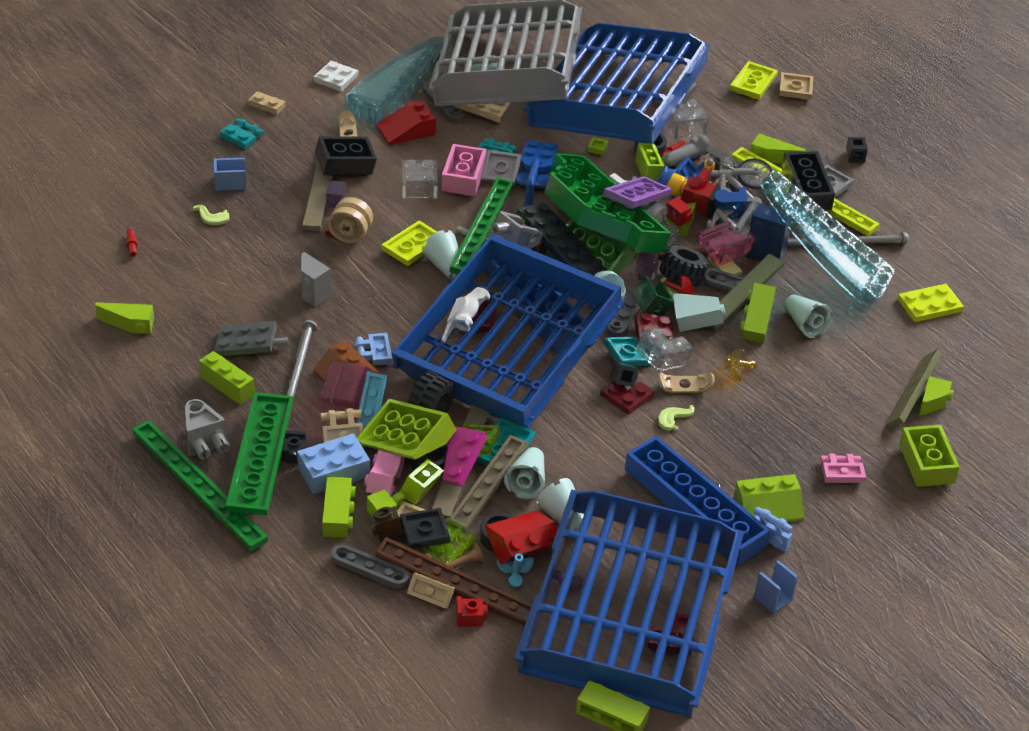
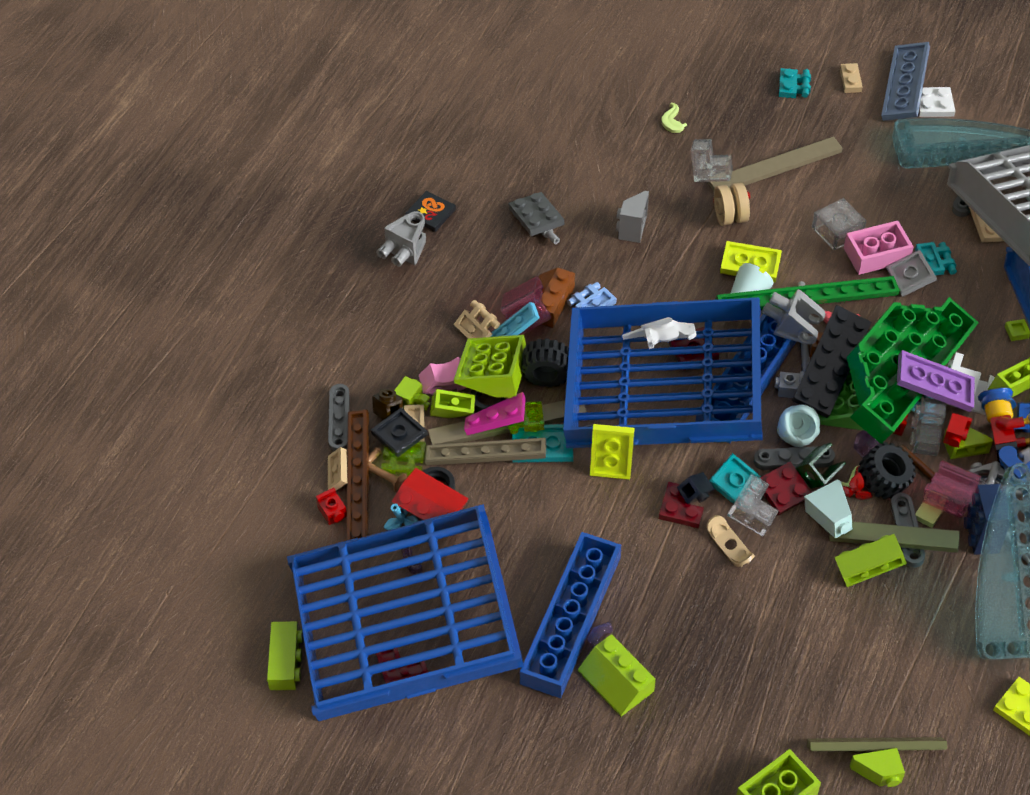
camera: 65 degrees right, 10 degrees up
(129, 317) = (507, 137): lime slope -> none
(131, 242) = (595, 90): red bar -> none
(170, 405) = (434, 210): none -> black tile
(199, 485) = (353, 271): green plate -> none
(226, 377) = (480, 225): lime brick -> none
(229, 174) = (732, 95): medium blue piece -> none
(260, 454) = (407, 286): green plate -> none
(293, 442) = (436, 306): black brick -> none
(294, 212) = (709, 166): none -> clear brick
(304, 76) = (905, 81): none -> sand blue plate
(308, 327) = (587, 246): light grey bar -> none
(333, 458) = (432, 337): light blue brick -> none
(335, 192) = (766, 180): brick -> none
(338, 507) = (388, 365): lime brick -> none
(345, 155) = (815, 158): black brick -> none
(347, 123) = (872, 143): tan piece -> none
(408, 123) = (912, 180): red slope -> none
(526, 474) = (517, 472): light aqua cone -> none
(536, 160) = (962, 289): blue plate -> none
(554, 500) = (499, 511): light aqua cone -> none
(559, 398) = (611, 451): none -> neon yellow plate
(667, 416) = (676, 548): yellowish green piece -> none
(734, 362) = (785, 572): clear yellow plant -> none
(776, 592) = (492, 720): medium blue piece -> none
(780, 531) = (574, 689): light blue plate -> none
(808, 315) = (905, 605): light aqua cone -> none
(843, 469) = (705, 725): bright pink plate -> none

